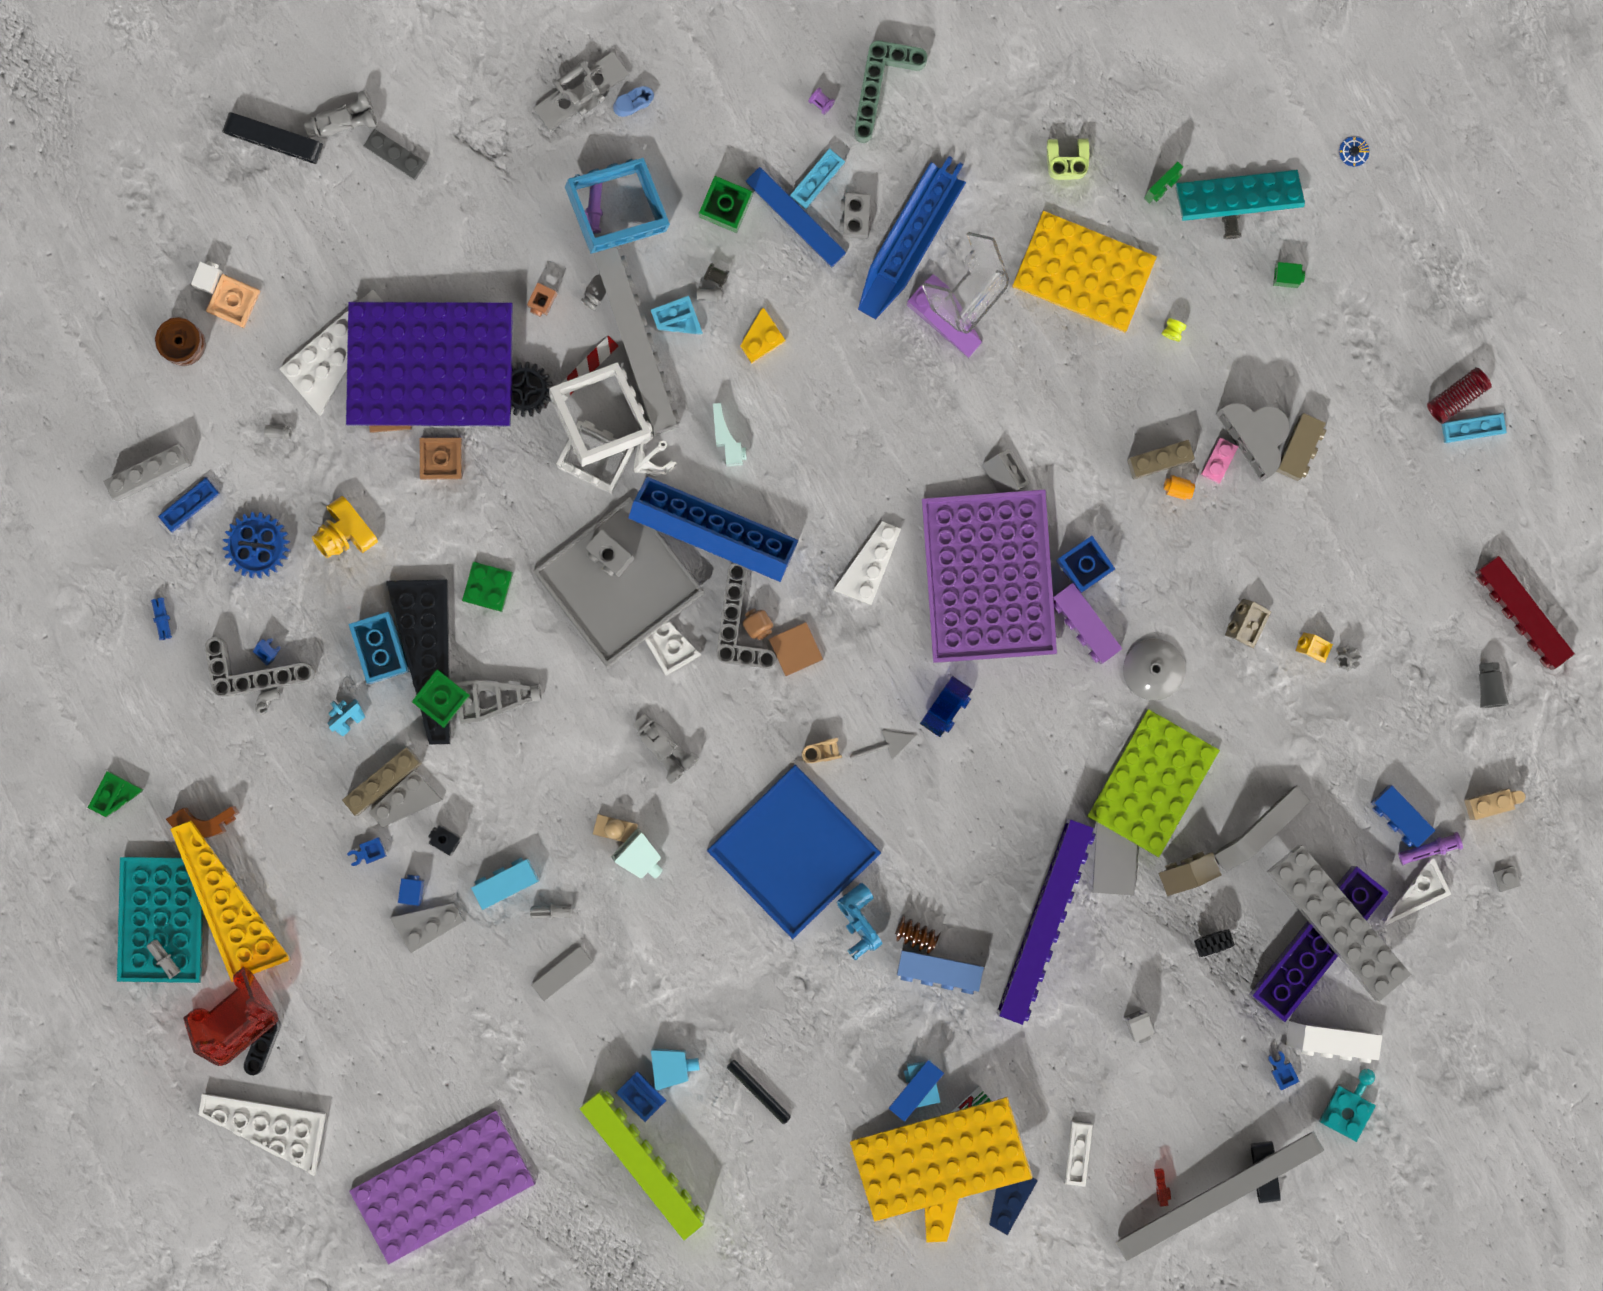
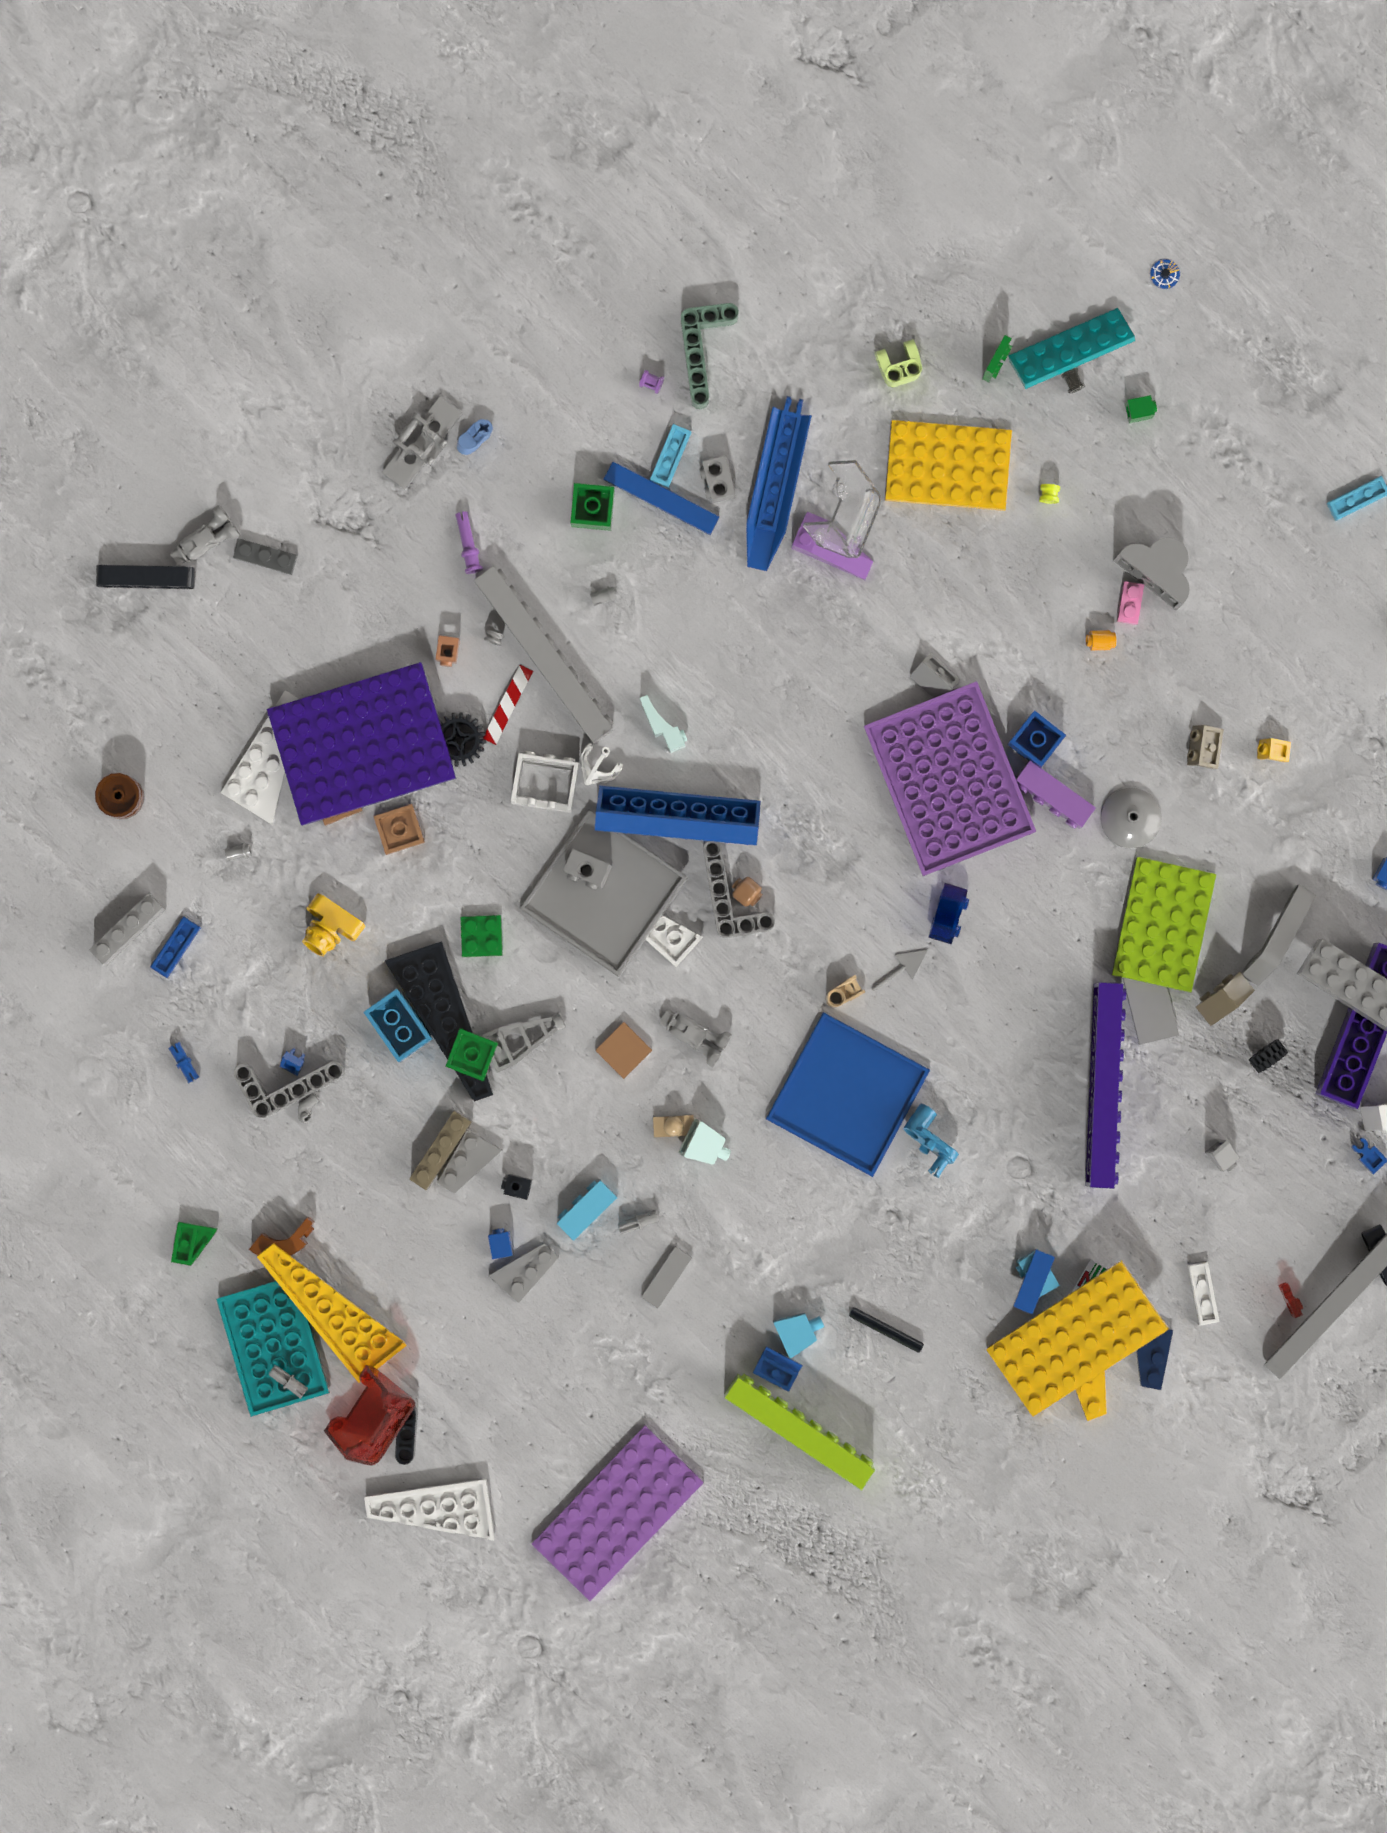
camera: 20 degrees left, 0 degrees up
(207, 277) = (125, 727): white brick -> none
(233, 301) = (156, 742): light nougat tile -> none
(259, 527) = (249, 947): blue gear -> none
(338, 722) = (381, 1106): medium azure hips -> none
(370, 851) = (449, 1219): blue plate -> none
(586, 457) = (534, 784): white window -> none
(590, 740) = (623, 1050): none -> medium nougat tile
(627, 235) = (476, 509): dark azure window -> none
(677, 317) = (580, 627): medium azure wing -> none
(716, 275) = (604, 576): clear smoke bush -> none
(761, 337) = (665, 621): yellow wing -> none
(795, 649) = (789, 904): medium nougat tile -> none
(867, 570) = (833, 809): white wing -> none
(917, 936) = (987, 1136): reddish brown piece -> none
(939, 970) = (1020, 1162): medium blue brick -> none
(1160, 459) = (1075, 619): dark tan brick -> none
(1301, 447) = (1203, 566): dark tan brick -> none
(1348, 657) = (1309, 750): light grey gear -> none
(1438, 412) = (1321, 494): dark red piece -> none

